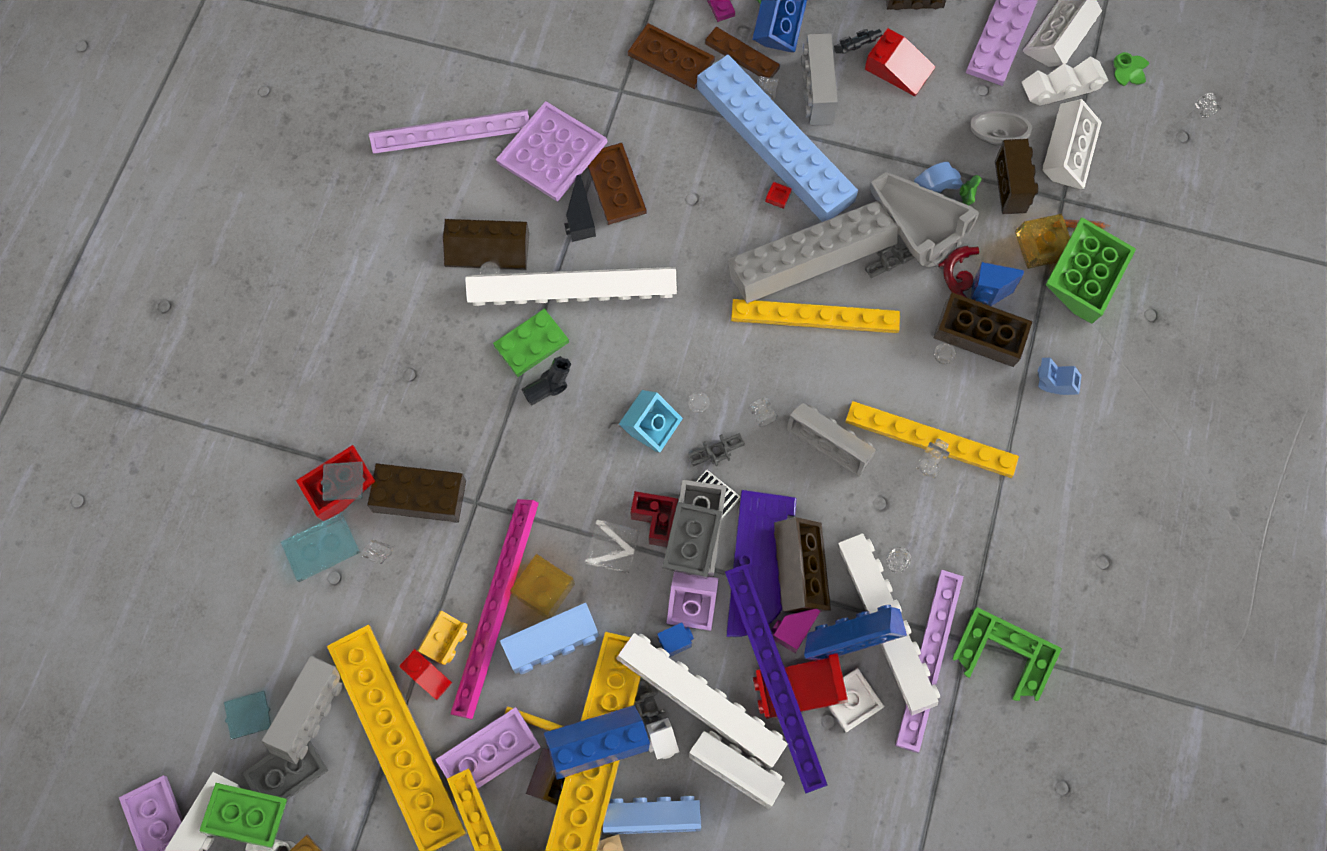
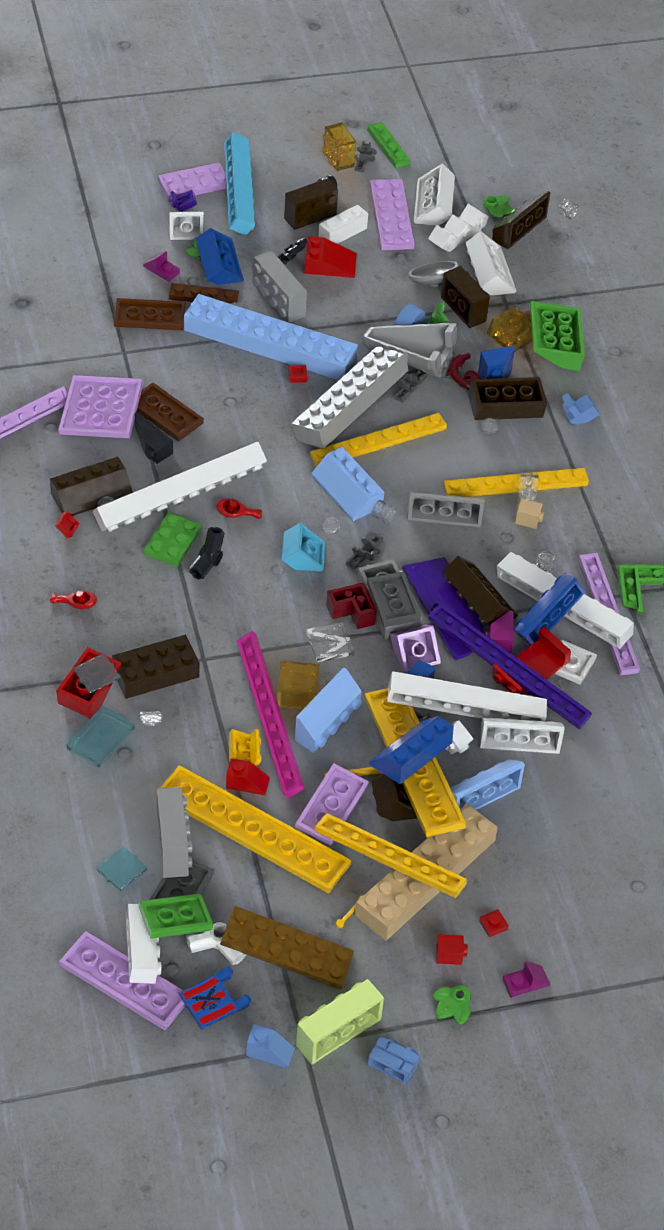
camera: 35 degrees left, 20 degrees down
(393, 373) = (79, 600): none -> red piece
(436, 278) = (67, 524): none -> red plate
(612, 335) = (232, 508): none -> red piece
(745, 359) = (347, 483): none -> light blue slope
(919, 489) = (529, 513): none -> tan brick
(938, 27) = (344, 224): none -> white brick
(1143, 100) = (521, 220): none -> dark brown slope

